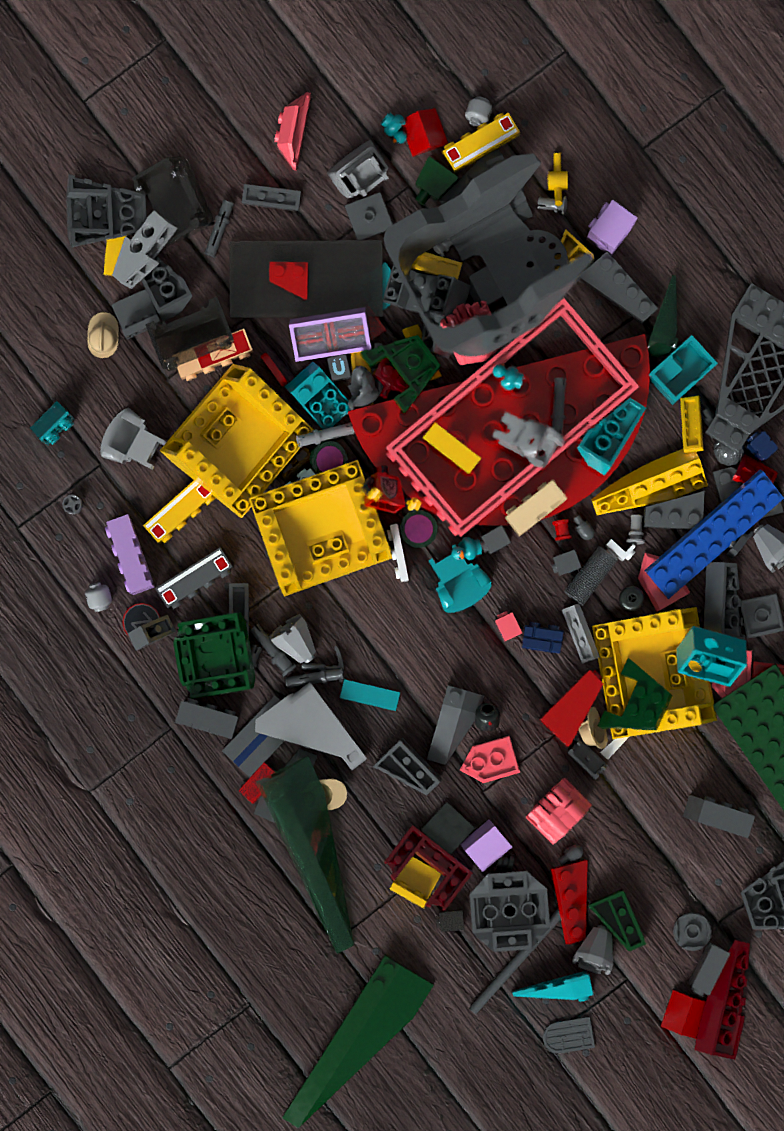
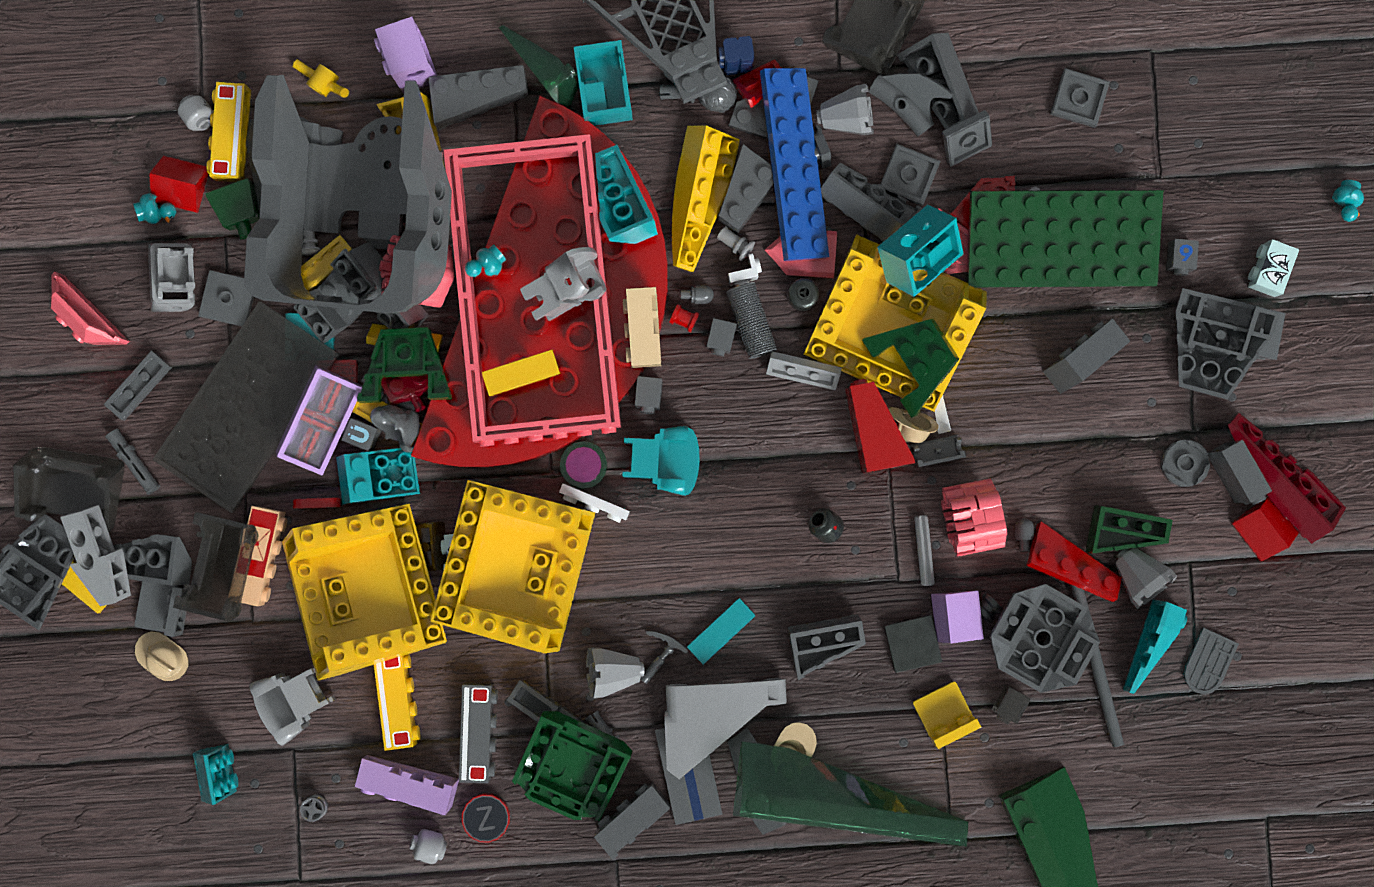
camera: 55 degrees left, 0 degrees up
(151, 632) = (502, 817): dark grey slope -> none
(250, 788) = (734, 824): red tile -> none
(278, 657) = (616, 700): dark grey pin -> none
(291, 277) = (231, 420): red wing -> none
(315, 677) = (665, 675): dark grey pin -> none
(325, 434) = (420, 495): light grey pin -> none
(327, 456) = (443, 508): tile -> none
(386, 493) = (522, 473): torso -> none
(418, 843) = (961, 668): dark red wedge -> none
(453, 722) = (807, 563): dark grey wedge -> none
(467, 548) = (637, 428): teal animal -> none
(491, 760) = (872, 551): coral tile -> none
(507, 625) = (745, 440): coral brick -> none
(515, 794) = (924, 550): none -> light grey axle
(541, 638) = (782, 413): dark blue brick -> none
(549, 204) = (342, 104): light grey pin -> none
(558, 405) = (550, 229): dark grey pin -> none
(691, 424) = (666, 112): yellow plate -> none

